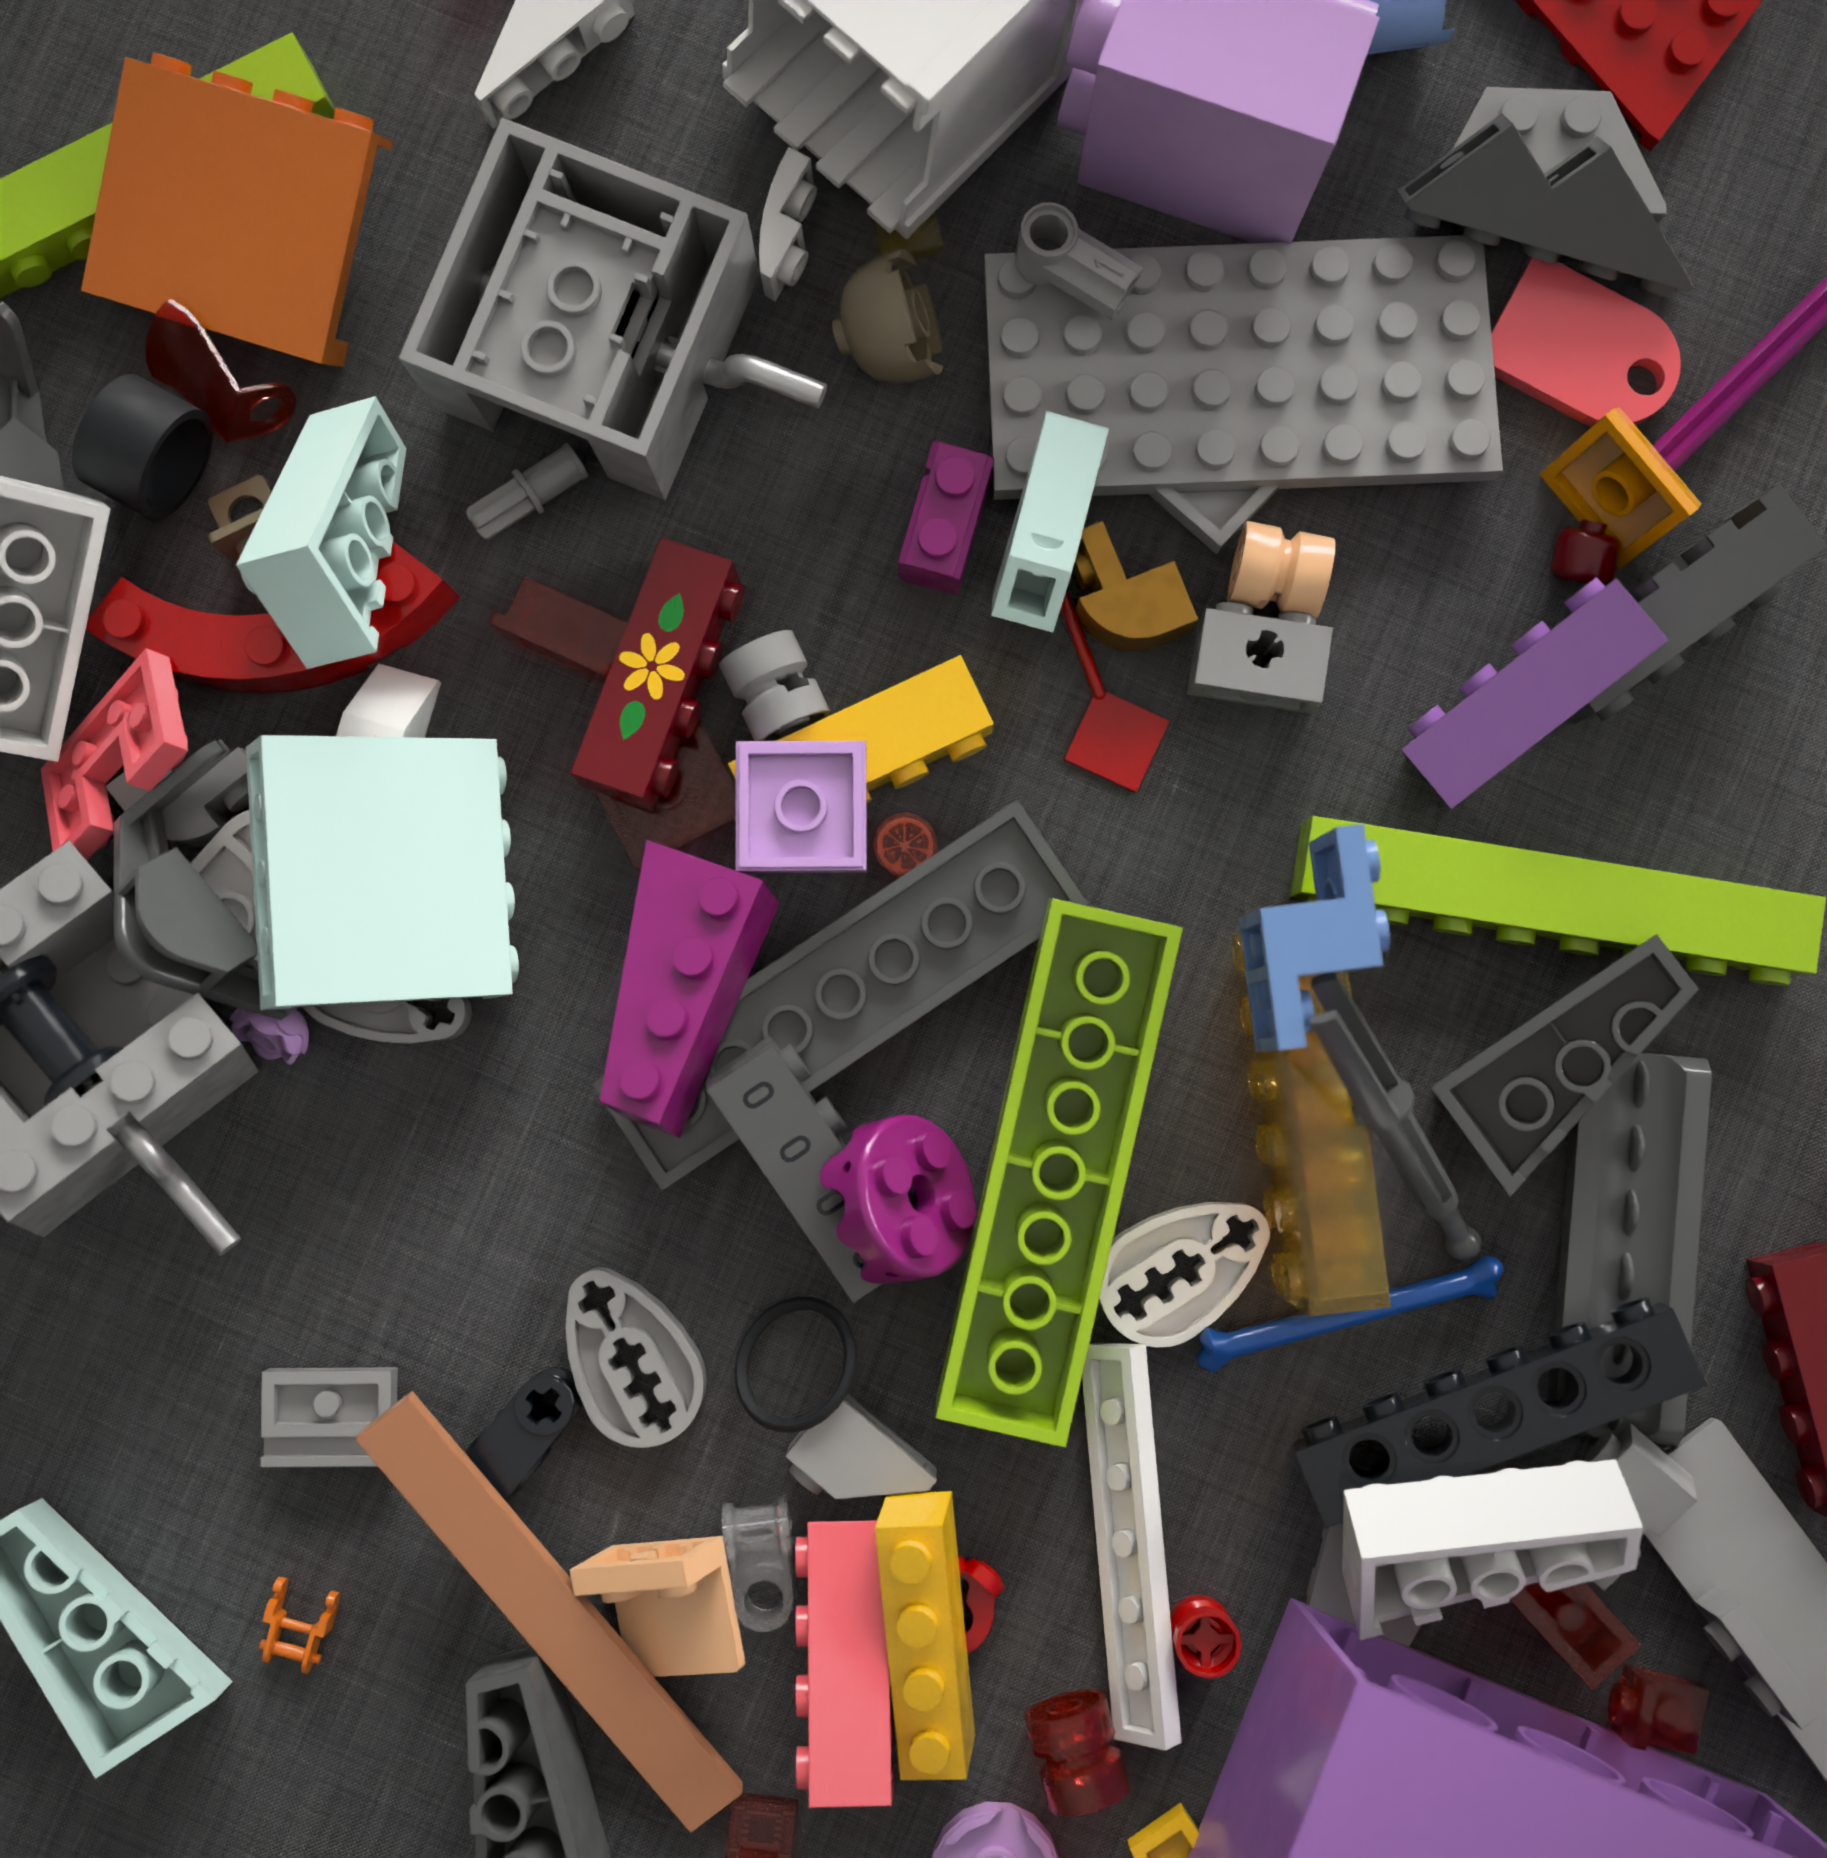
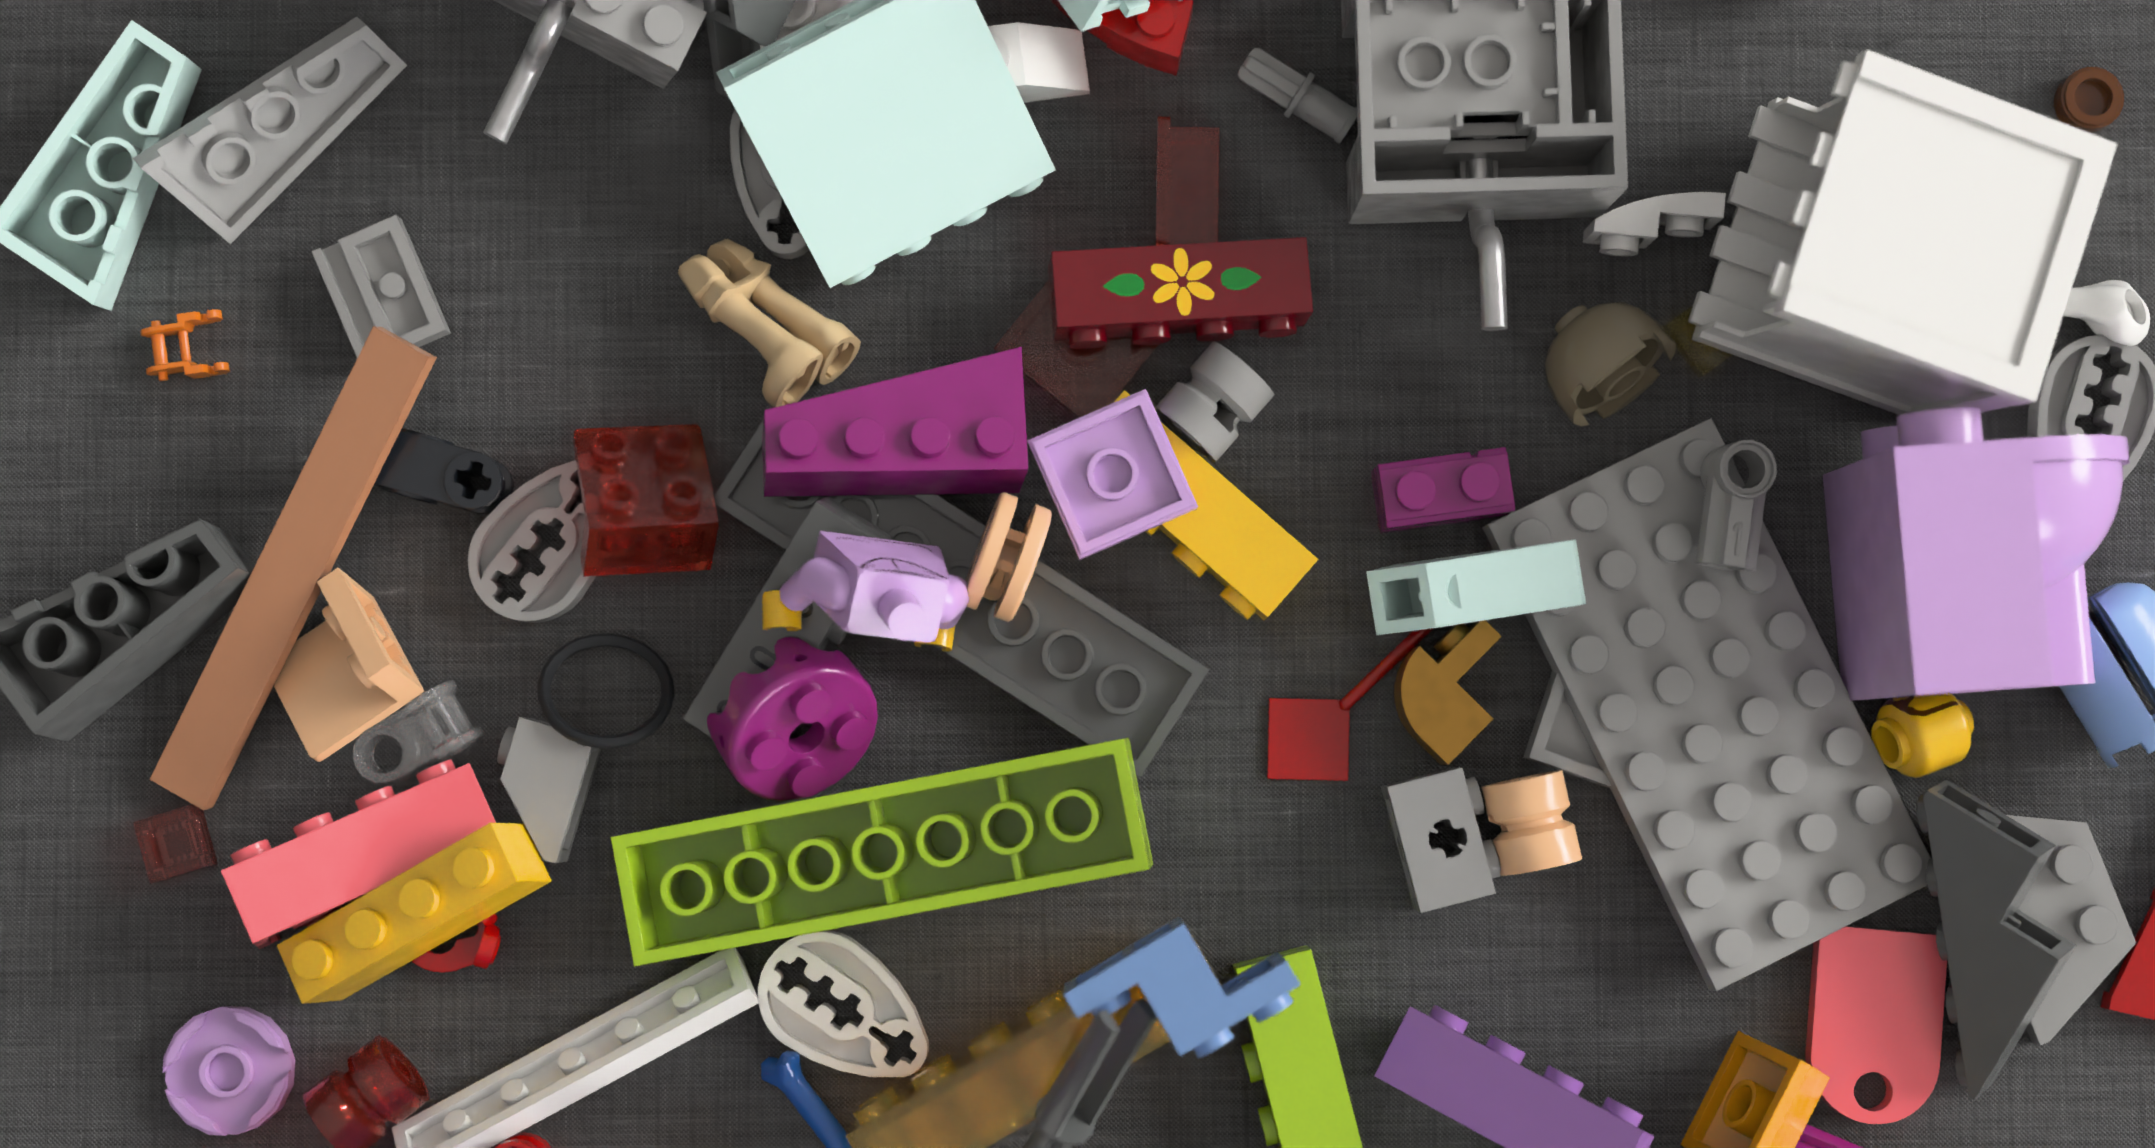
camera: 65 degrees right, 0 degrees up
(128, 1461) = (266, 134): none -> light grey wing
(271, 1036) = (698, 88): lavender plate -> none
(554, 1048) = (728, 287): none -> tan piece
(634, 1251) = (645, 500): none -> clear red bracket
(813, 1071) = (873, 590): none -> lavender torso
(837, 937) = (1006, 557): none -> light nougat head
(904, 843) = (1125, 583): clear red tile -> none
(1349, 193) = (1922, 733): none -> yellow head
(1586, 553) = (1677, 1105): dark red piece -> none

